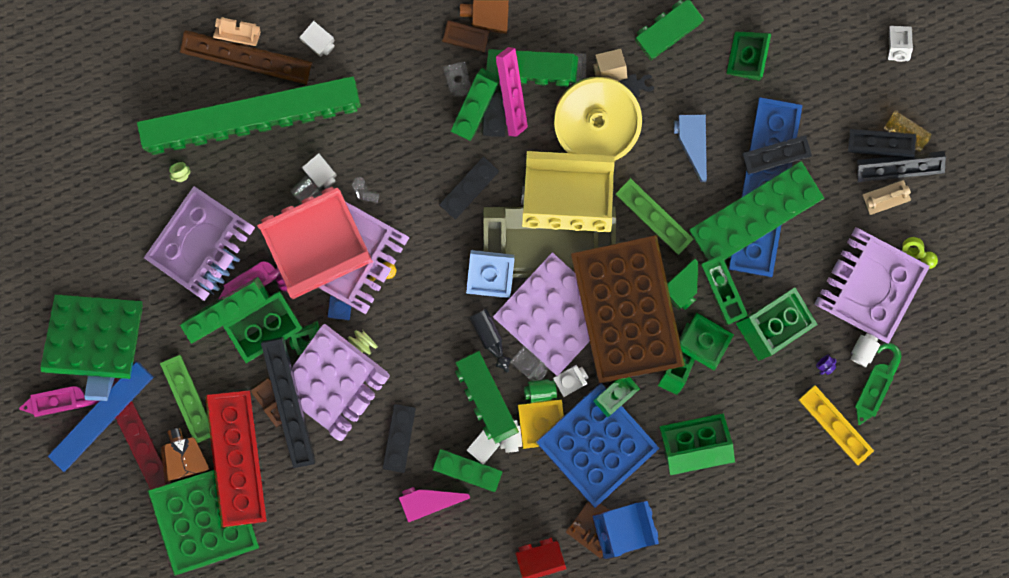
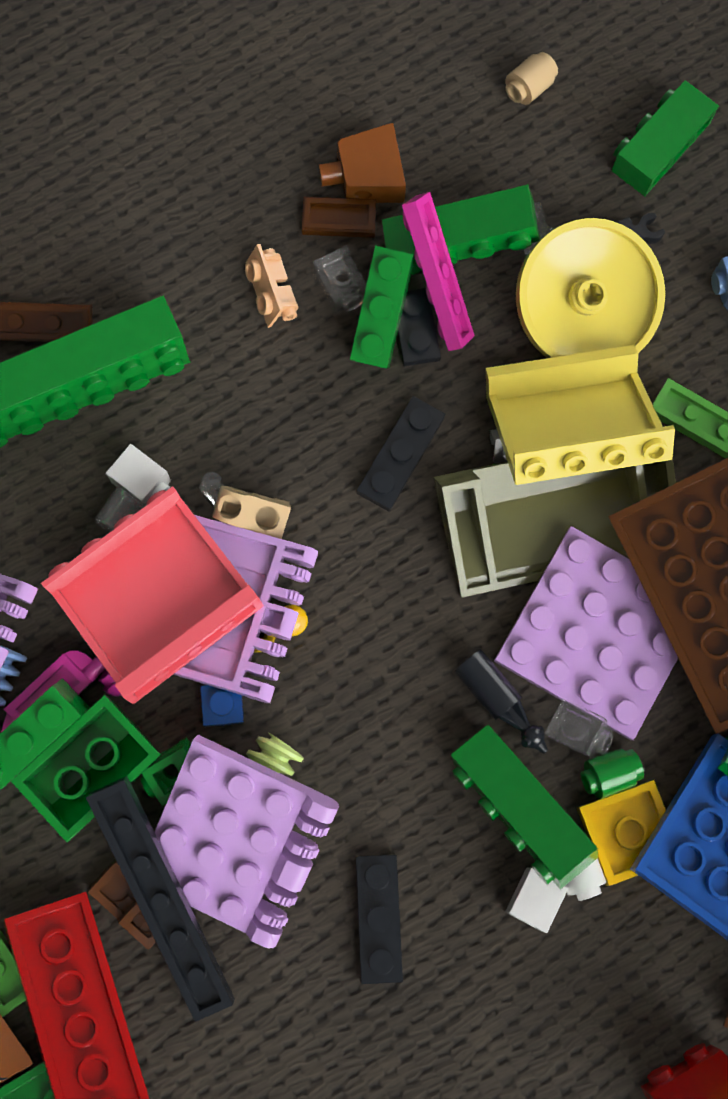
camera: 10 degrees left, 10 degrees down
(317, 39) = (94, 265): white brick -> none
(378, 206) = (252, 511): none -> tan leg
(414, 62) = (265, 271): none -> light nougat hinge
(424, 502) = (458, 1029): dark pink slope -> none
(467, 470) = (520, 951): green brick -> none
(490, 274) = (473, 585): light blue plate -> none
(571, 380) = (660, 741): white bracket -> none
(611, 65) = (588, 200): tan brick -> none

